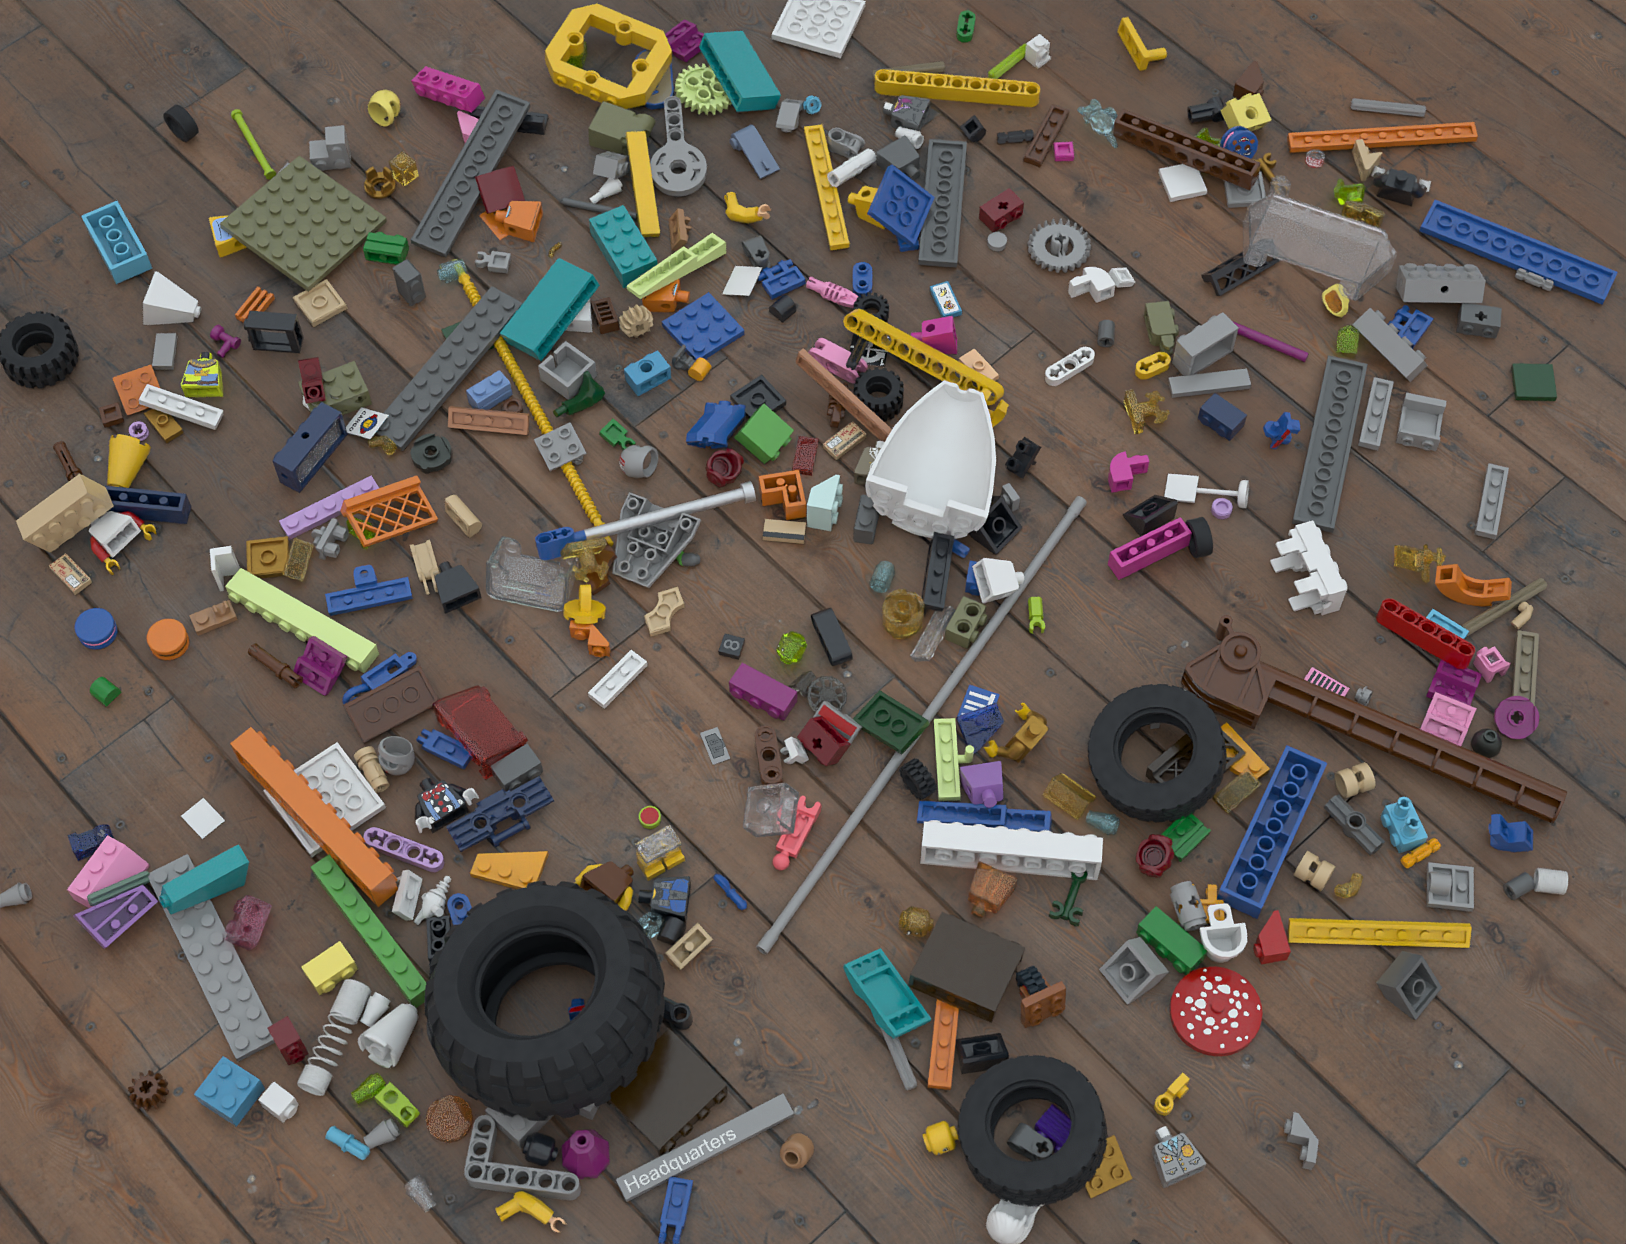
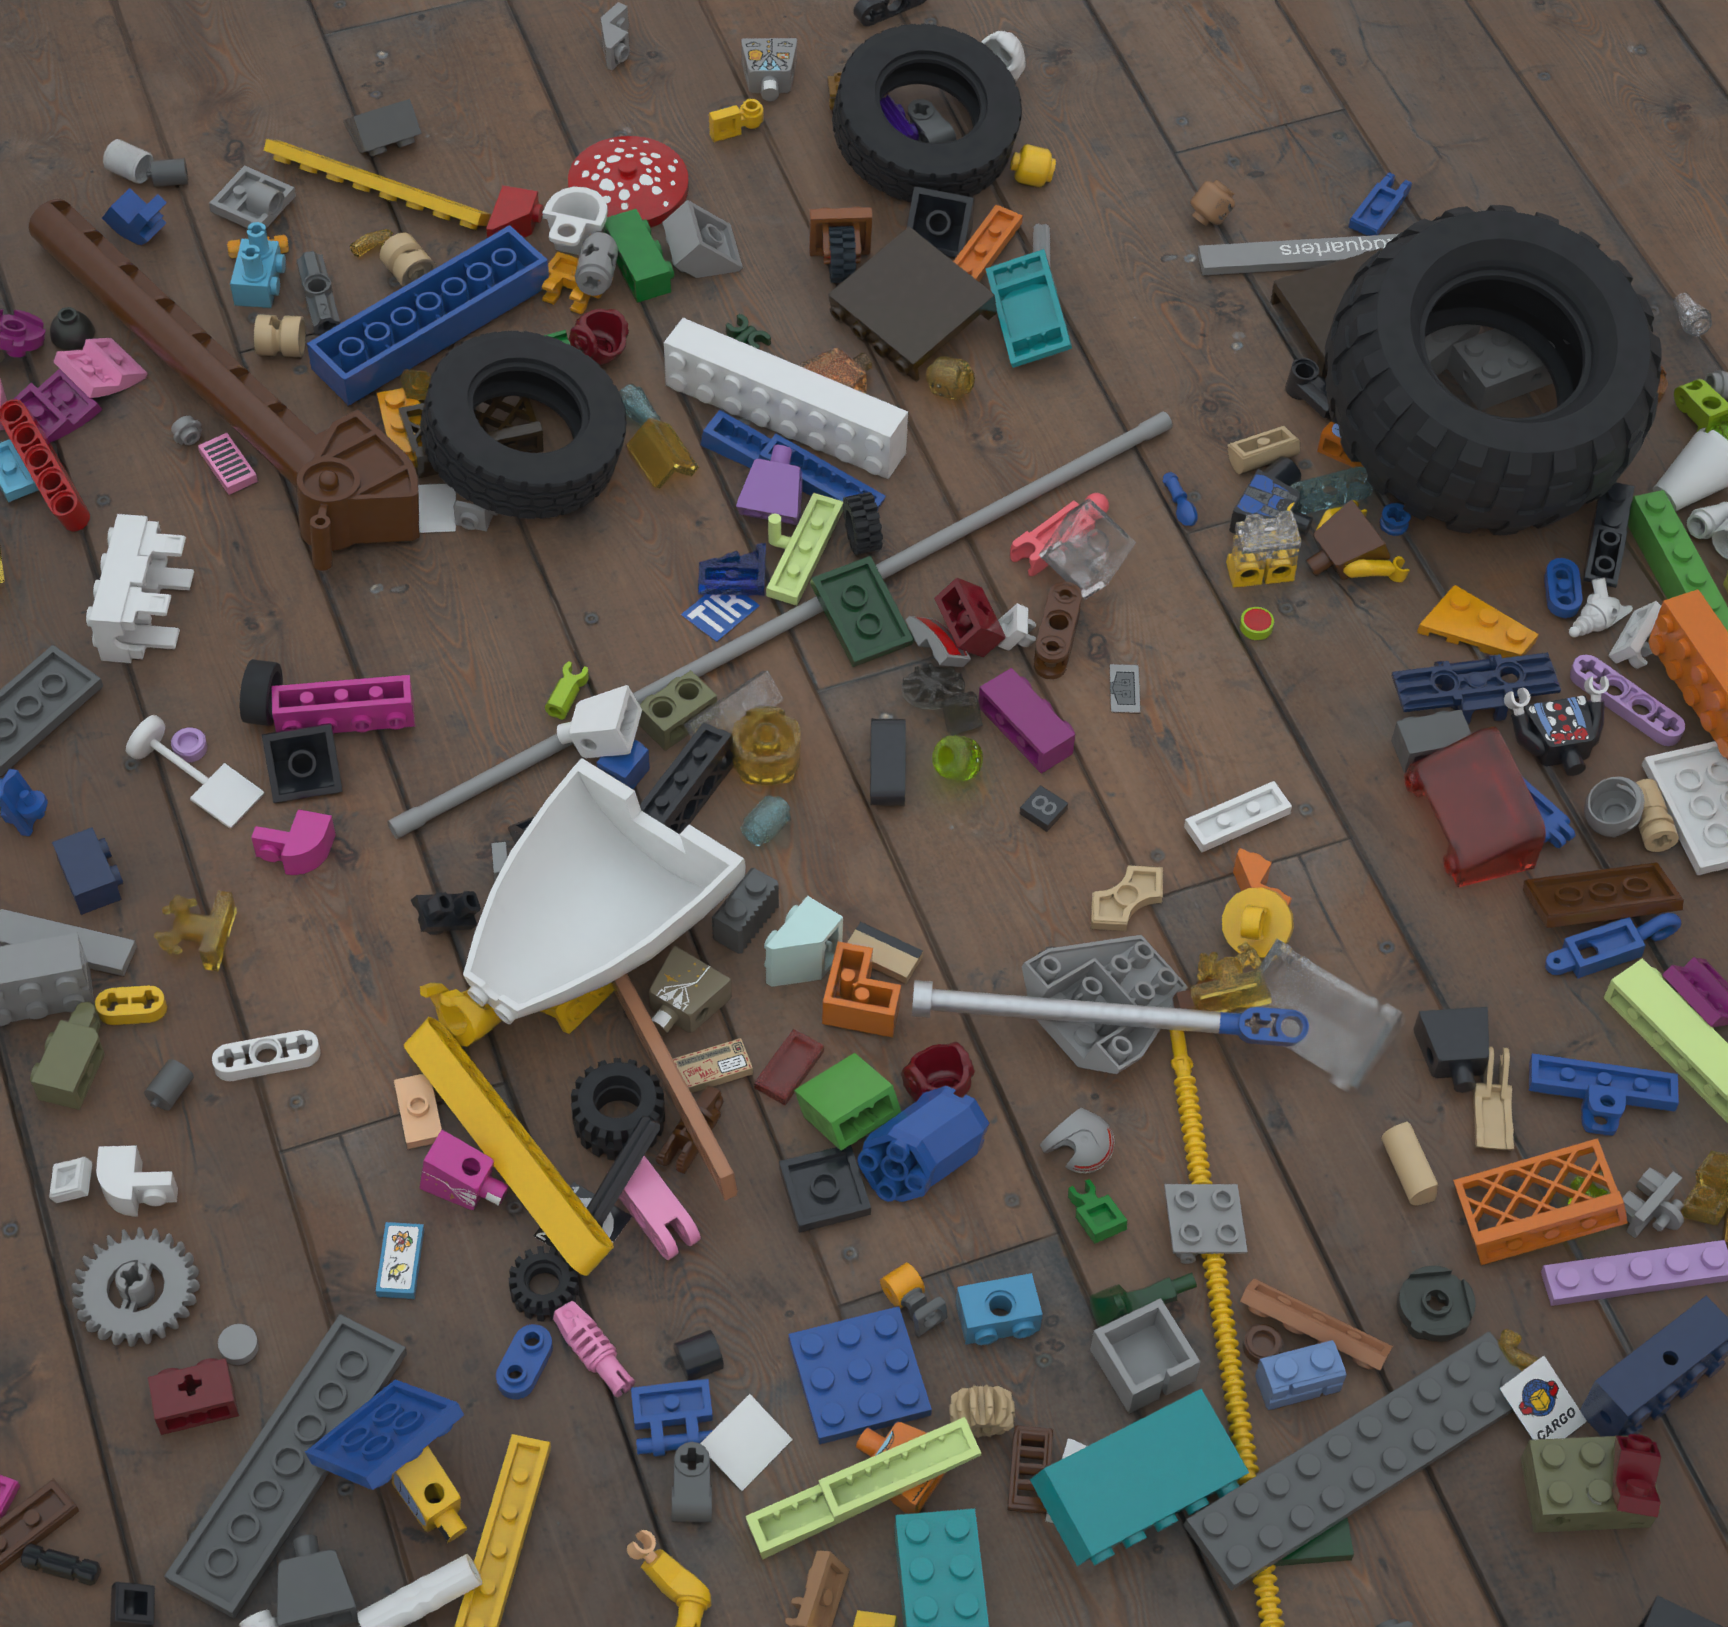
camera: 160 degrees left, 5 degrees down
(1023, 739) = (683, 524): pearl gold torso -> none

